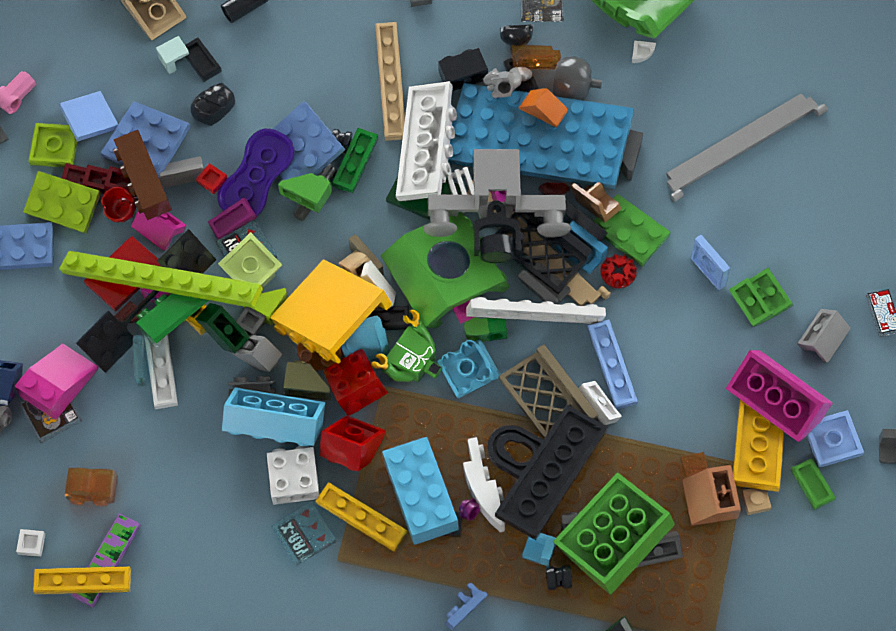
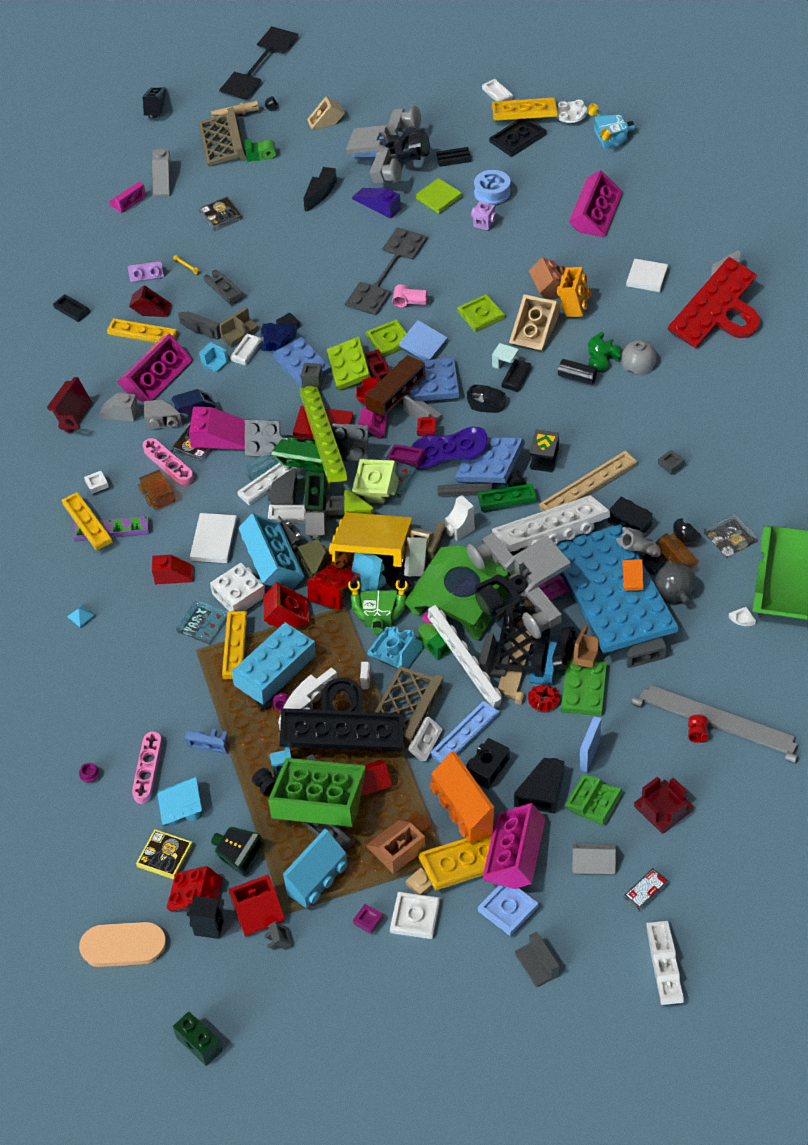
camera: 60 degrees right, 15 degrees down
(54, 246) = (312, 375): none -> dark grey panel
(56, 454) = (170, 460): none -> bright pink beam
(89, 41) = (480, 313): none -> lime tile
(191, 360) = (284, 489): none -> dark grey slope
(198, 463) = (213, 538): none -> white tile
(215, 528) = (171, 569): none -> red slope
(219, 374) = (293, 513): none -> white tile
(307, 190) = (457, 479): bright green slope -> none
(325, 92) = (544, 450): none -> piece
(358, 216) = (461, 519): none -> white arch
(492, 413) = (365, 675): none -> white tile
(554, 188) = (578, 622): clear red tile -> none
(608, 466) = (375, 777): none -> red panel
(664, 350) = (490, 752): none -> black brick
(698, 586) = (315, 869): none -> medium azure slope
(700, 407) = (463, 798): none -> orange slope
(722, 331) = (542, 786): none -> black slope
(744, 164) = (698, 728): none -> red wheel
(770, 569) = (368, 918): none -> magenta plate
(788, 525) = (415, 915): none -> white tile
(806, 242) = (663, 803): none -> dark red panel
(813, 483) = (461, 914): bright green tile -> none

